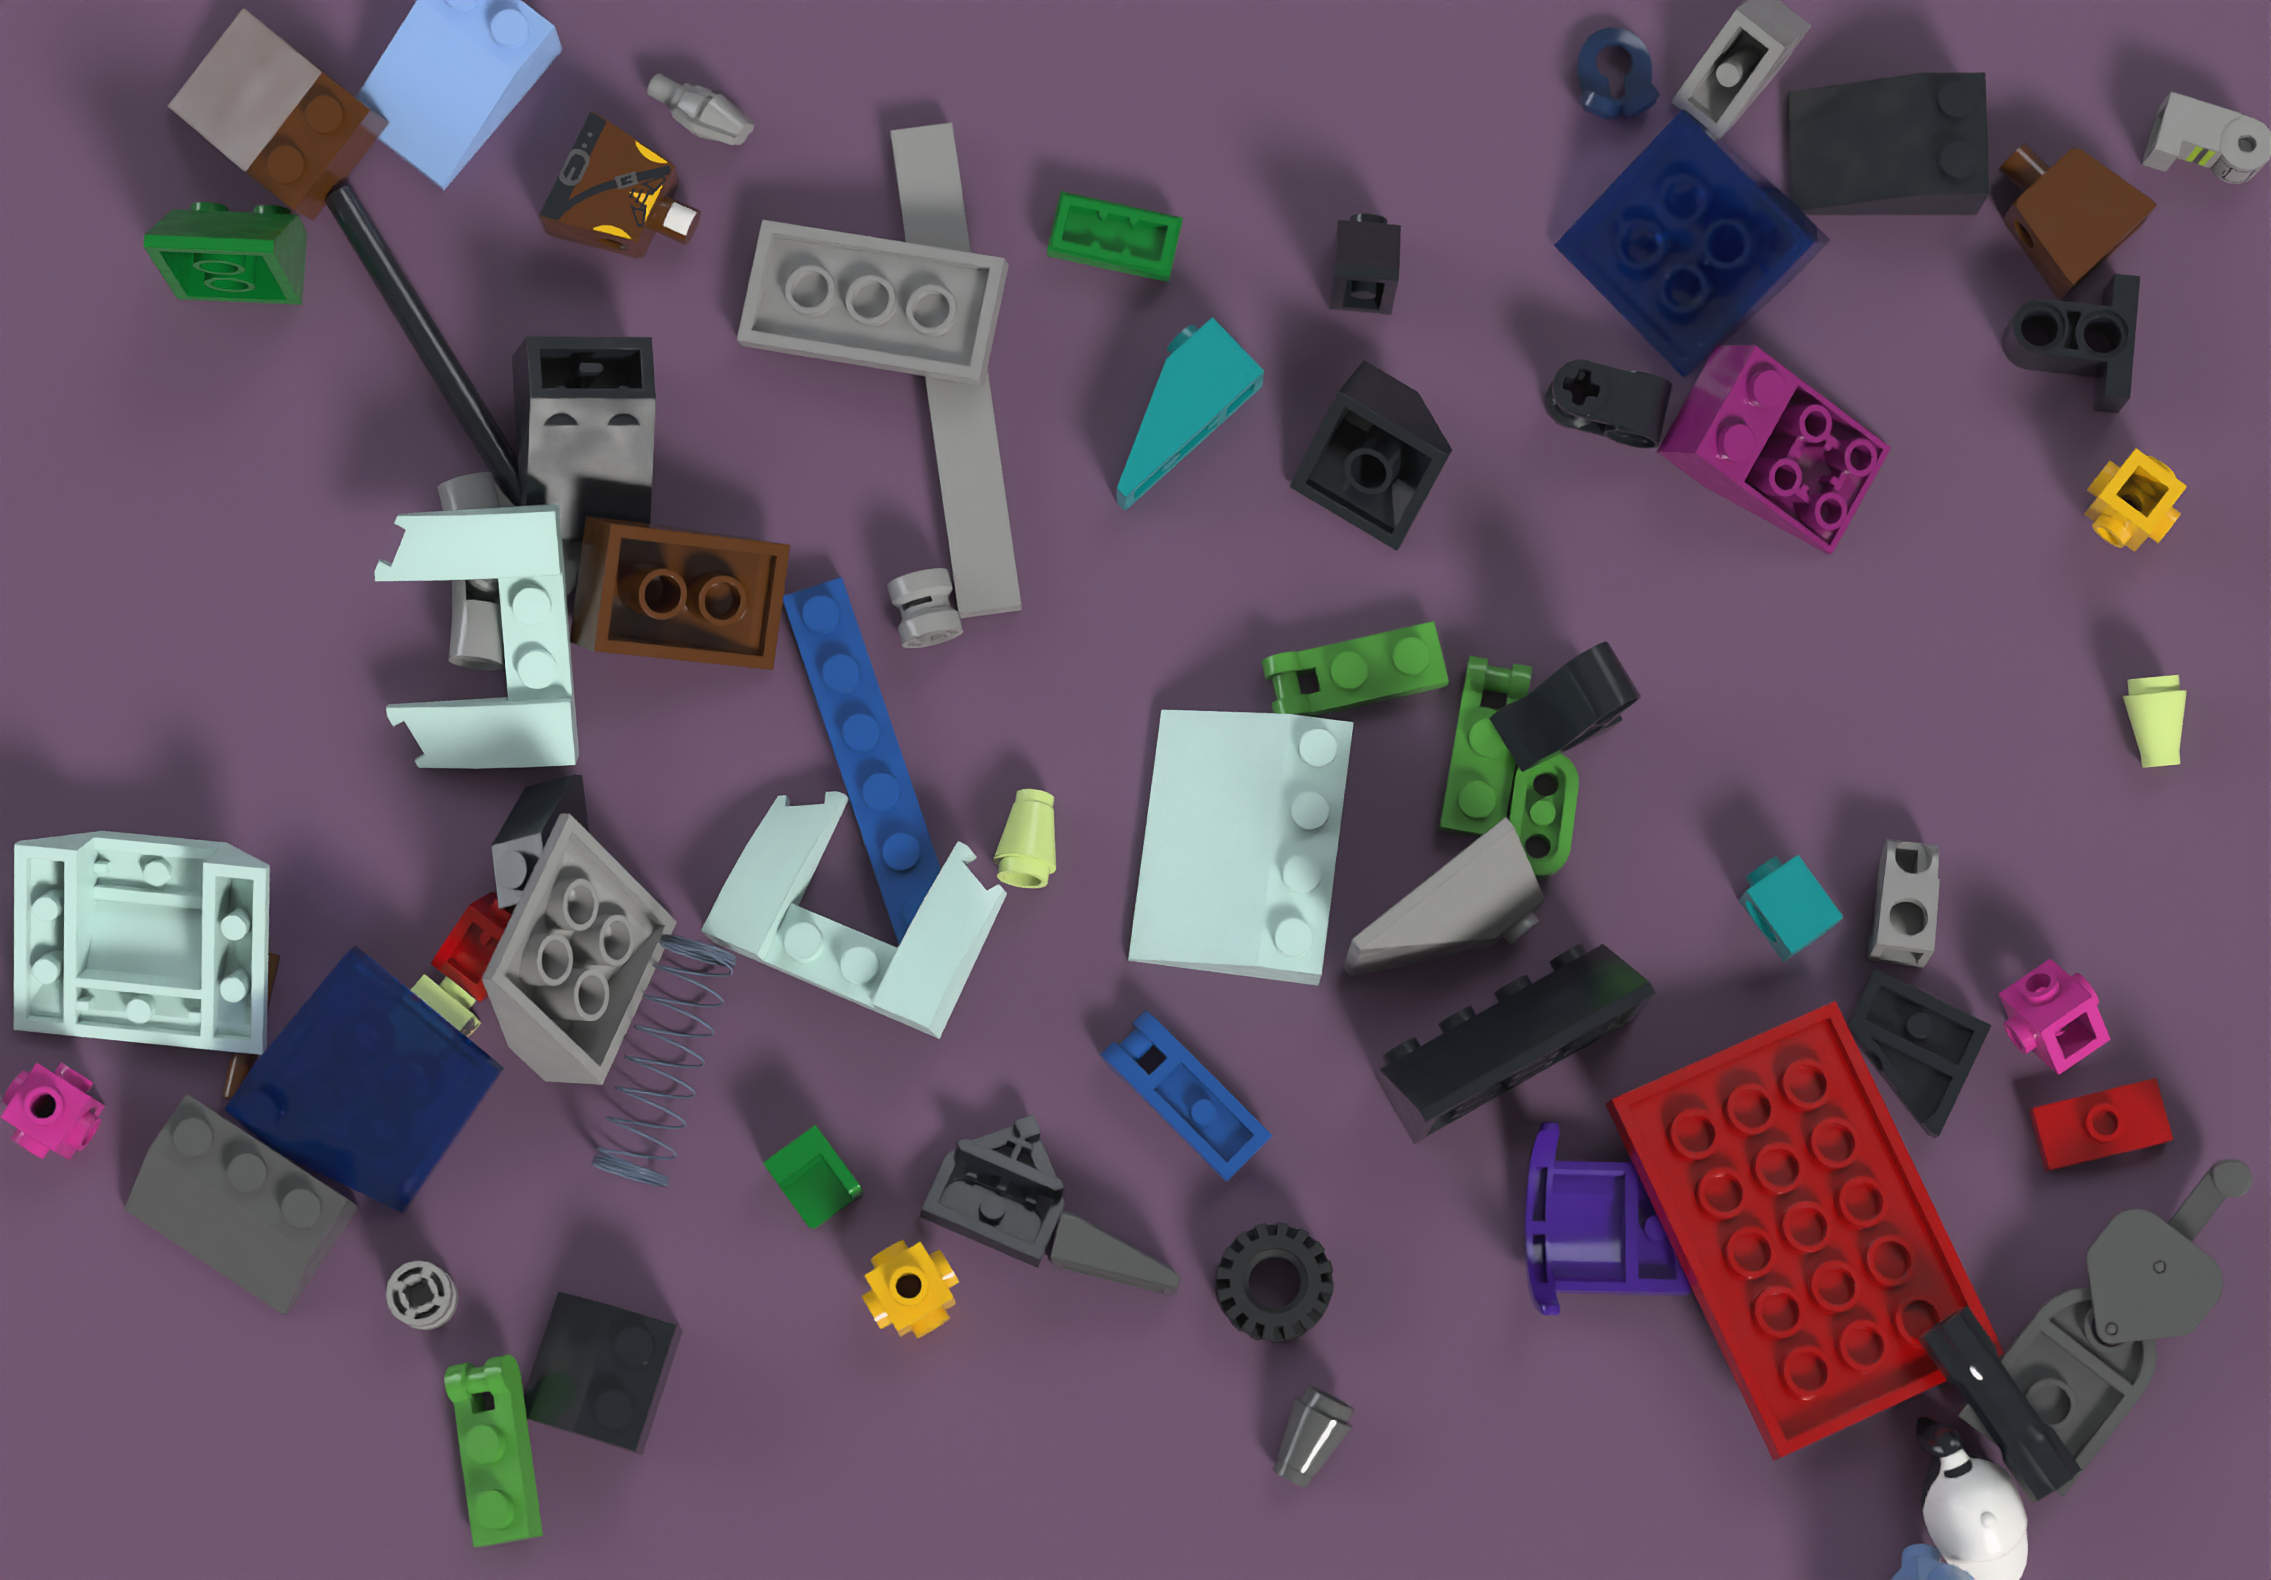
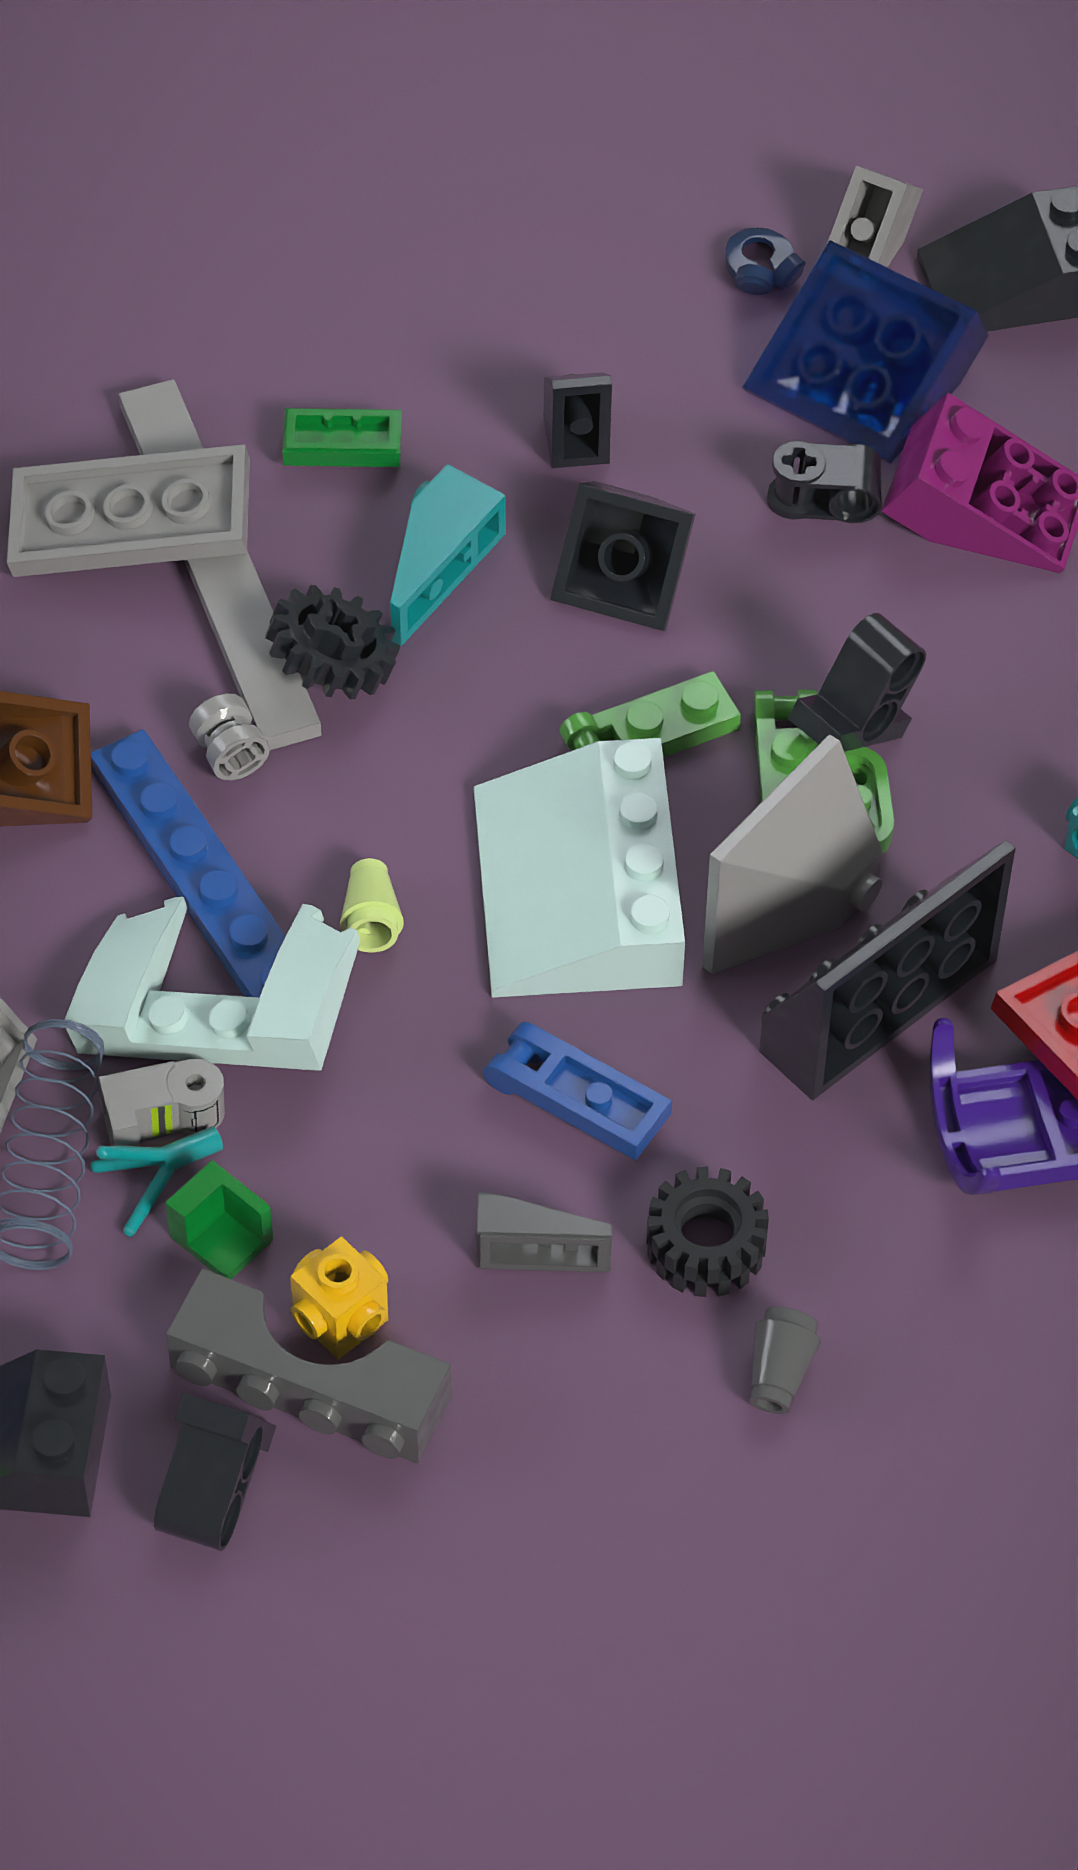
camera: 10 degrees left, 25 degrees down
(759, 1090) = (166, 1158): none -> teal plant
(760, 1445) = (210, 1471): none -> black tile
(779, 1028) = (161, 1101): none -> light grey leg
(799, 1305) = (382, 1400): none -> dark grey arch
(999, 1192) = (411, 1207): black slope -> none
(1047, 522) = (332, 642): none -> black gear

